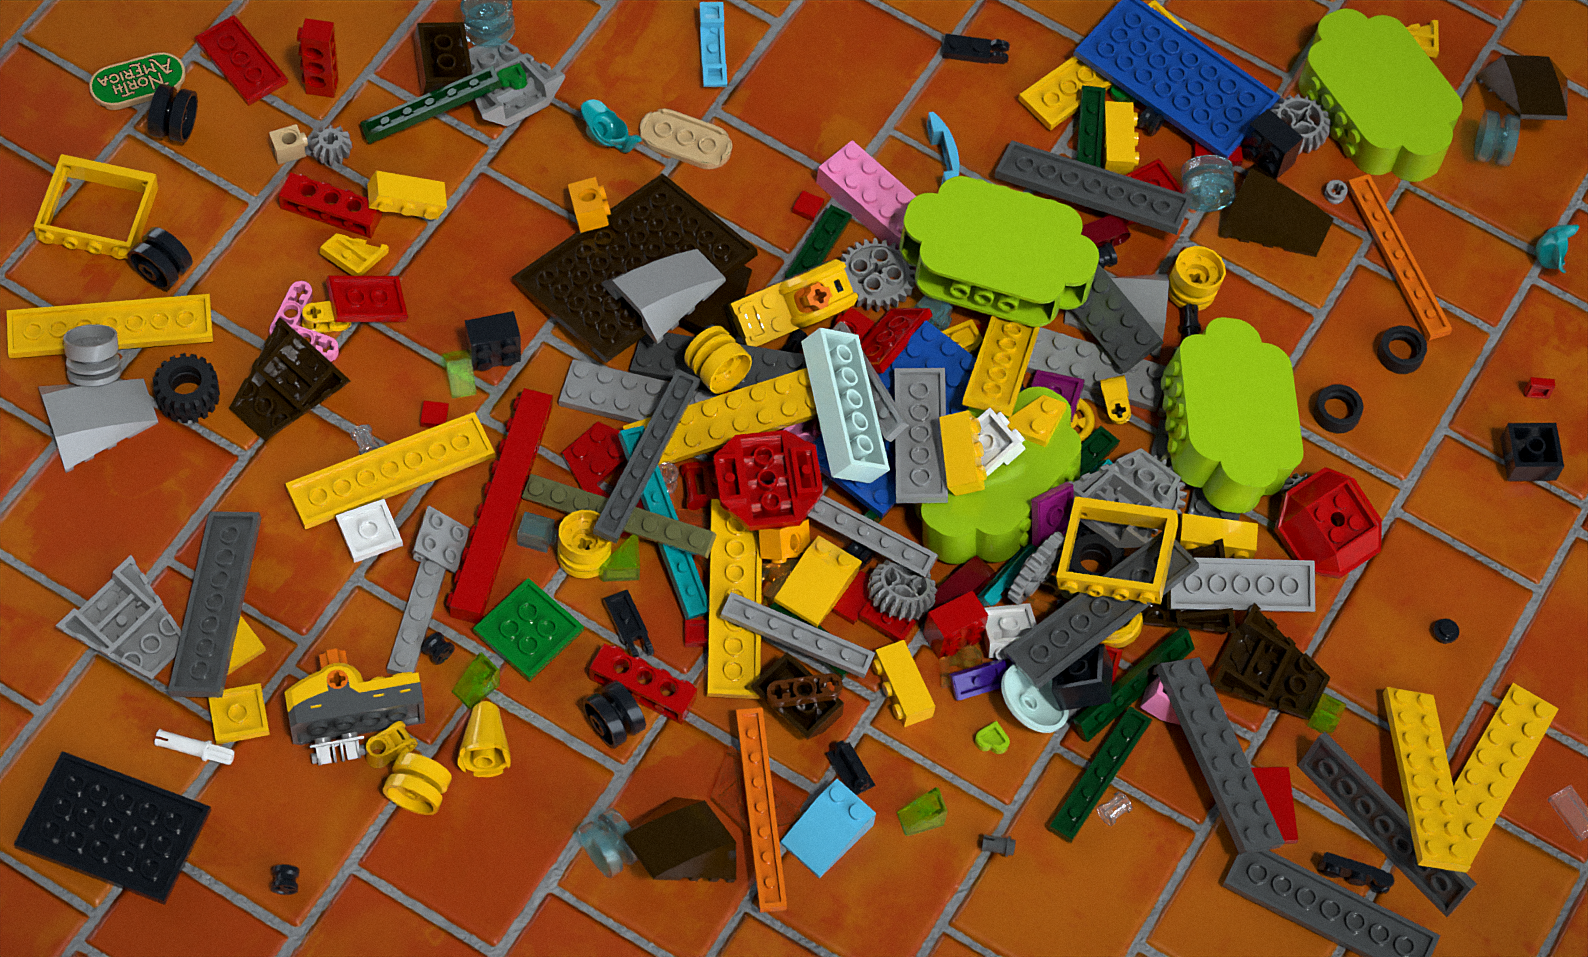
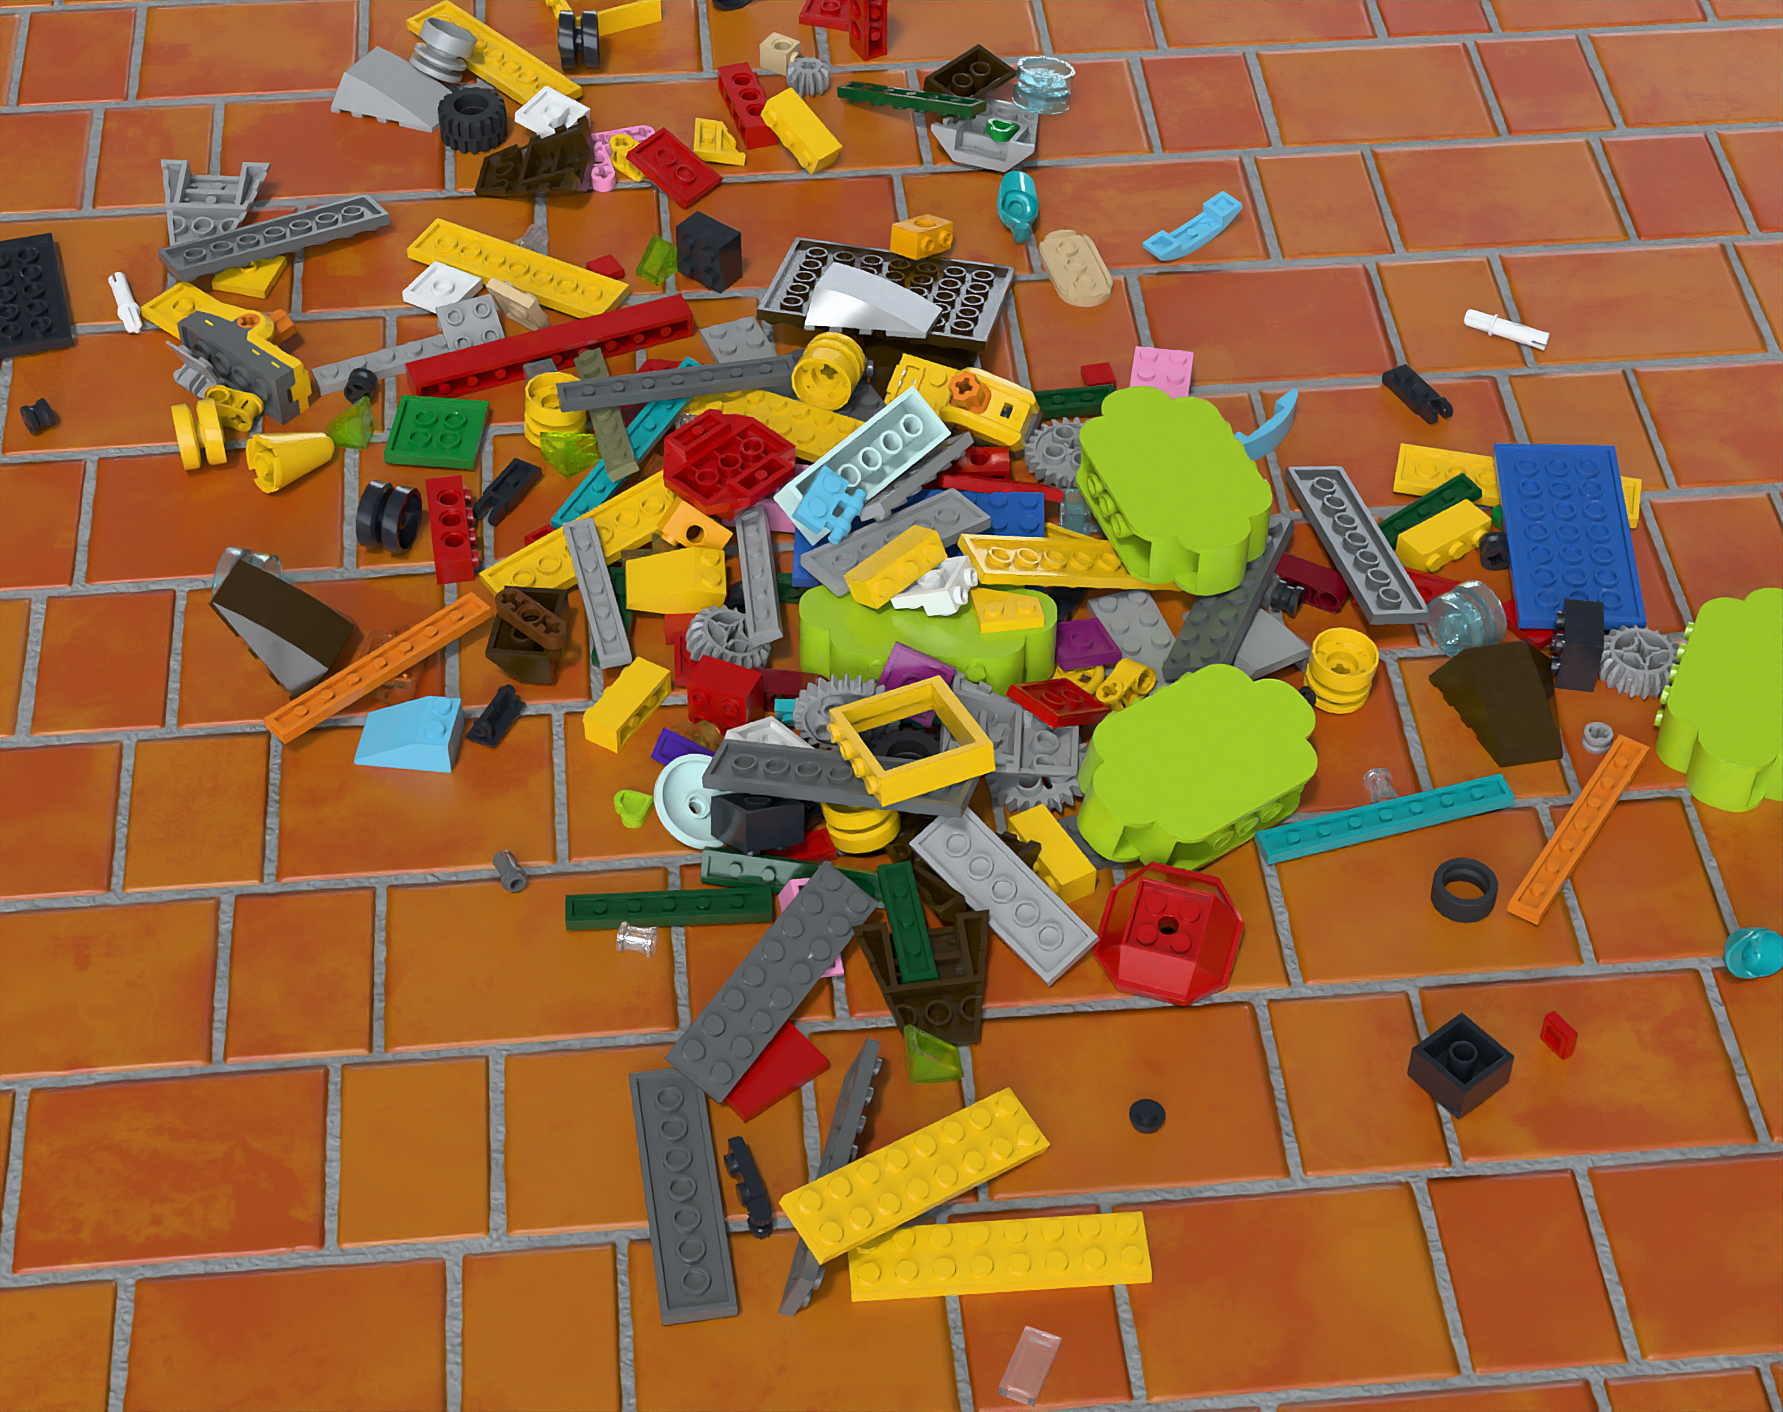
camera: 60 degrees right, 15 degrees down
(235, 335) = (550, 110): none -> white plate
(461, 492) = (517, 306): none -> tan plate
(872, 453) = (820, 500): none -> medium azure plate
(923, 813) = (494, 796): clear neon green slope -> none
(1117, 445) = (1059, 702): none -> red tile
(1223, 651) = (906, 922): none -> dark green tile
(1291, 327) = (1381, 787): none -> clear bush
(1321, 339) = (1384, 818): none -> teal plate
(1343, 393) = (1327, 855): black tyre -> none

